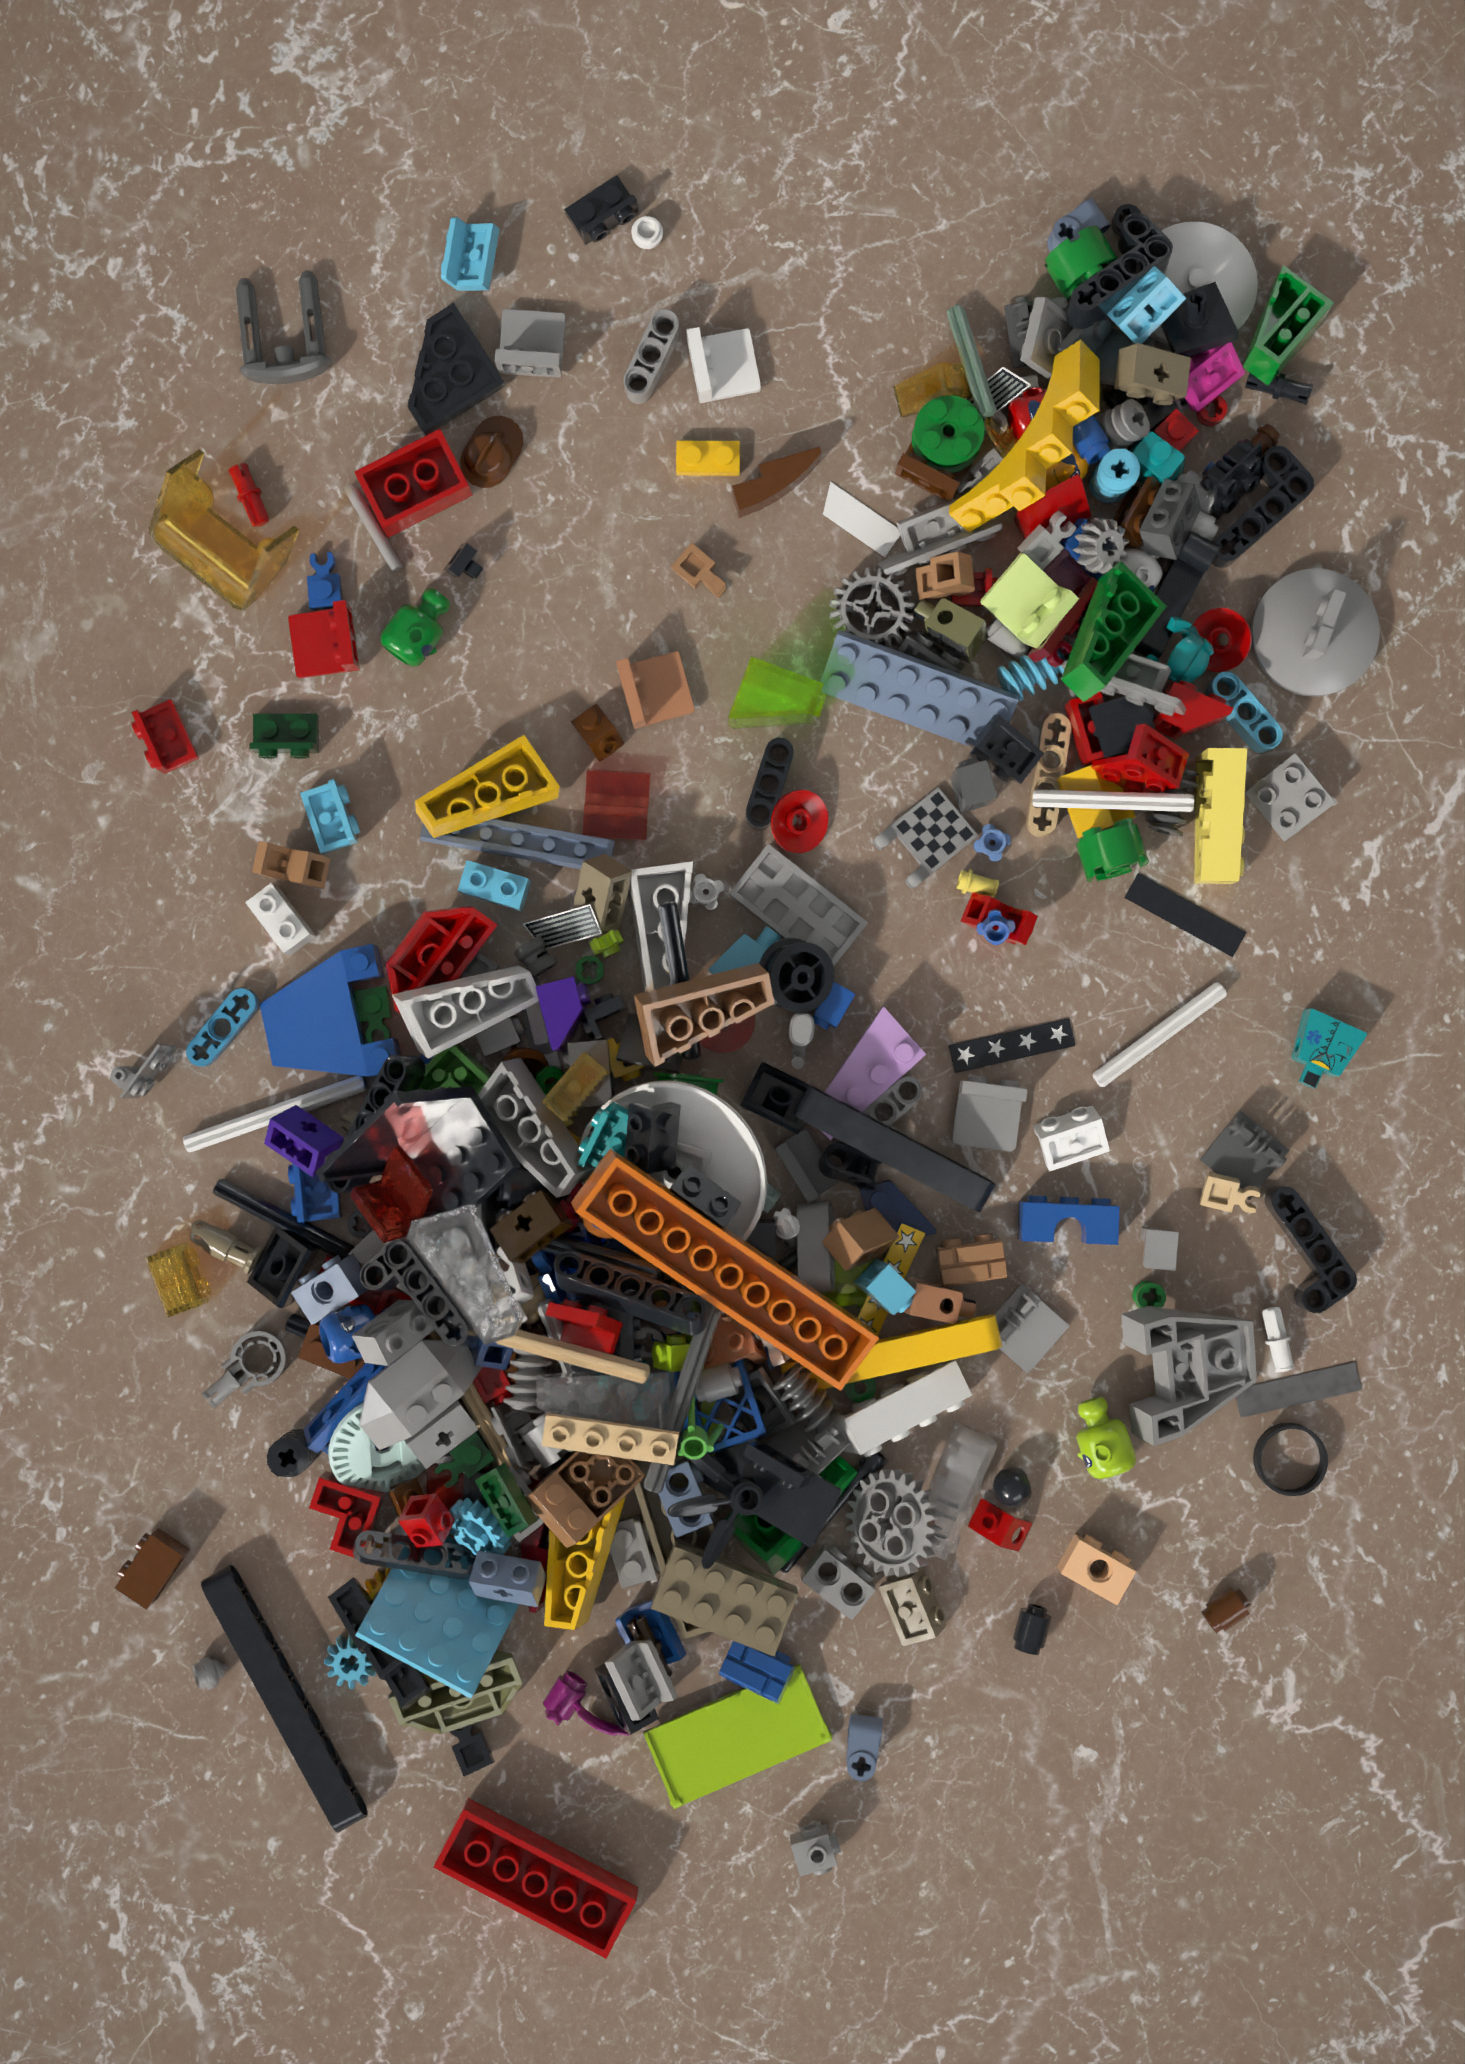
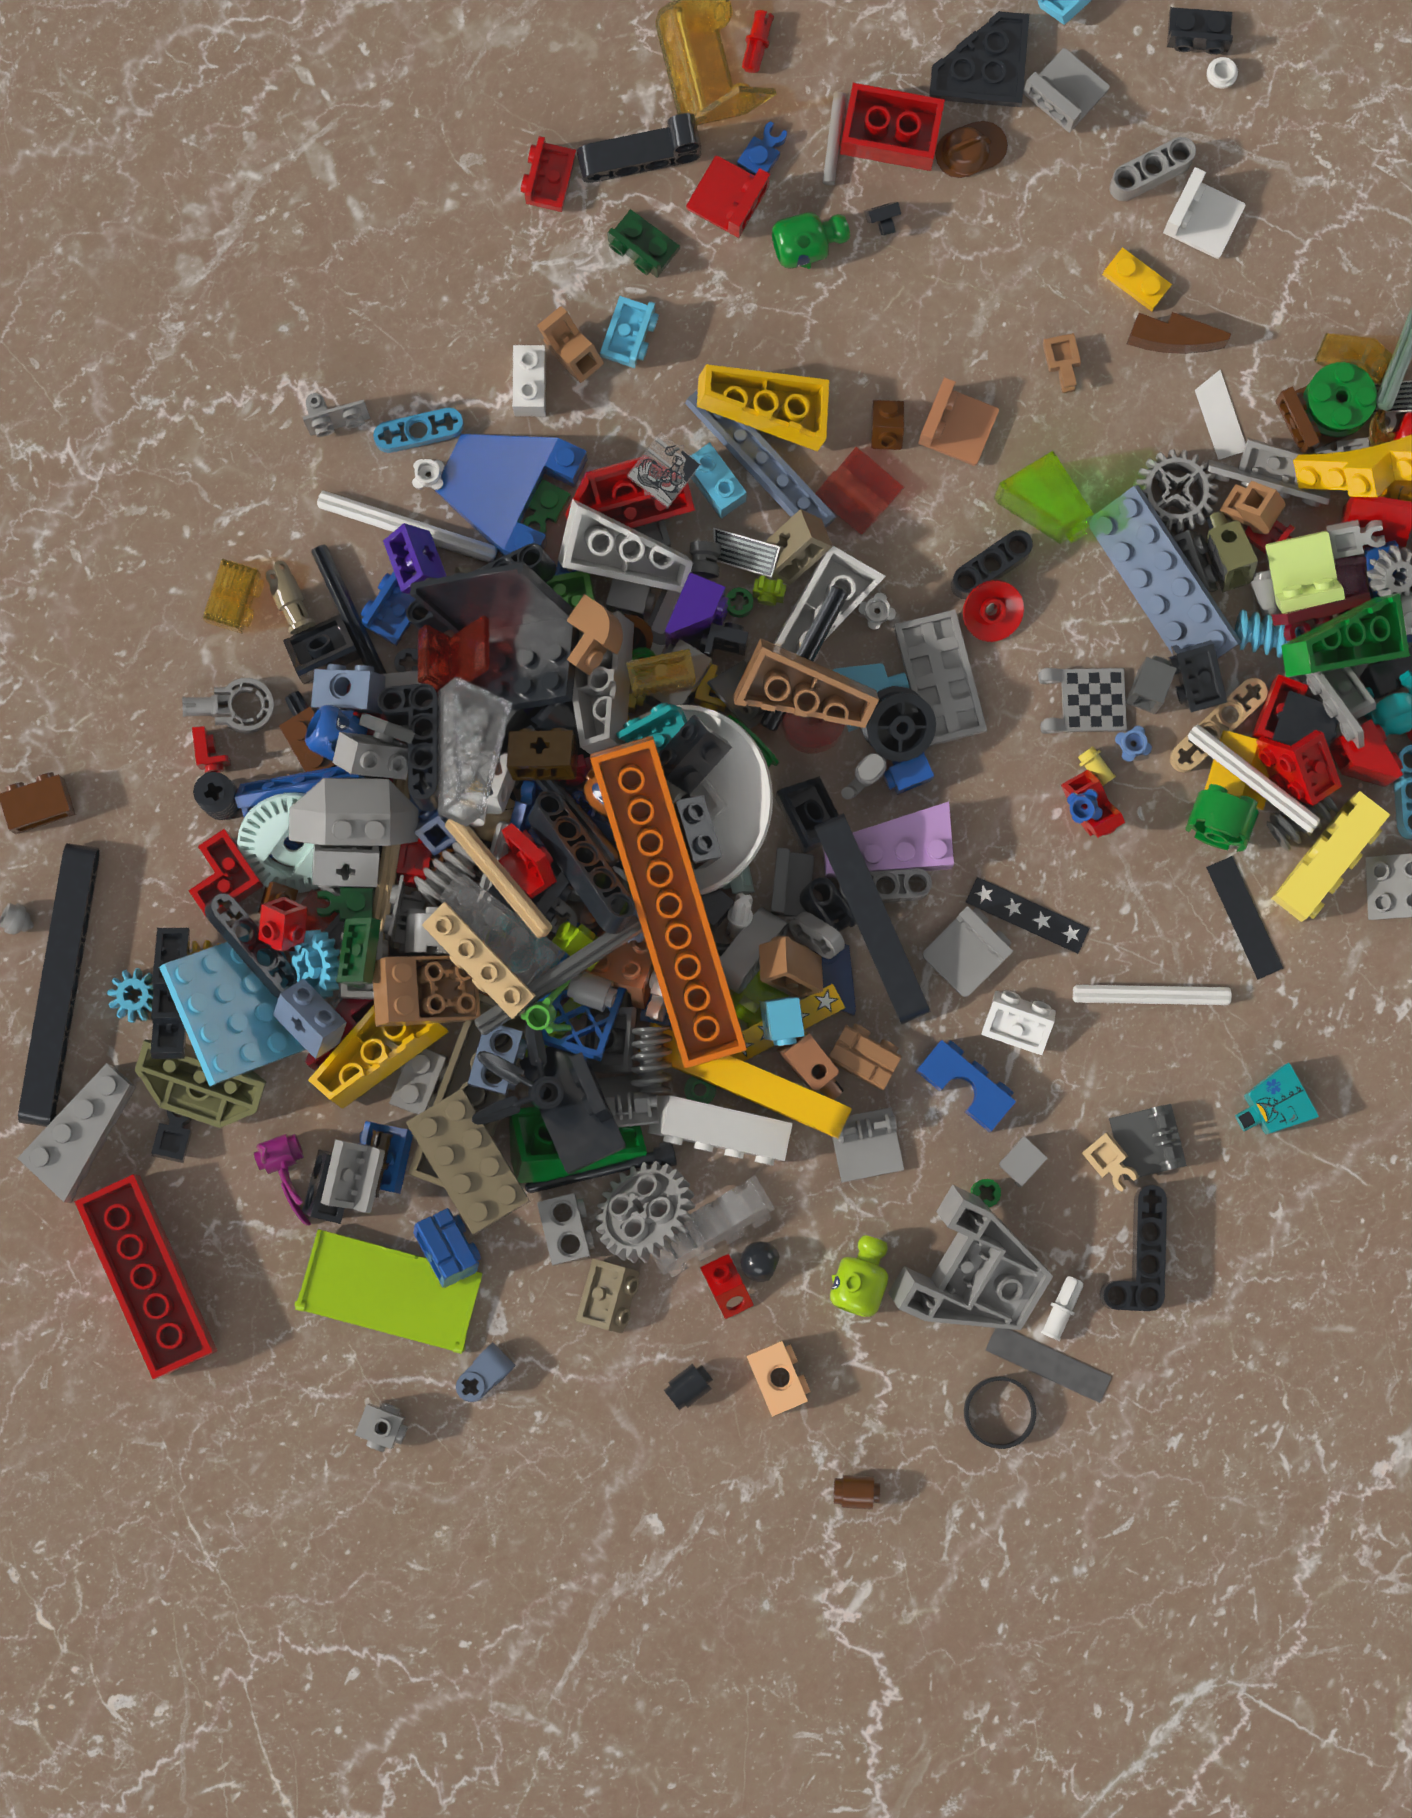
camera: 35 degrees right, 5 degrees down
(225, 659) = (642, 151): none -> black beam
(249, 1056) = (427, 465): none -> white plate
(251, 1420) = (205, 745): none -> red bracket
(387, 1303) = (386, 730): none -> dark grey plate
(393, 1812) = (73, 1139): none -> light grey wedge
(447, 913) = (664, 470): none -> piece
(502, 1092) = (600, 632): none -> medium nougat brick
(859, 1194) = (816, 935): none -> light grey beam

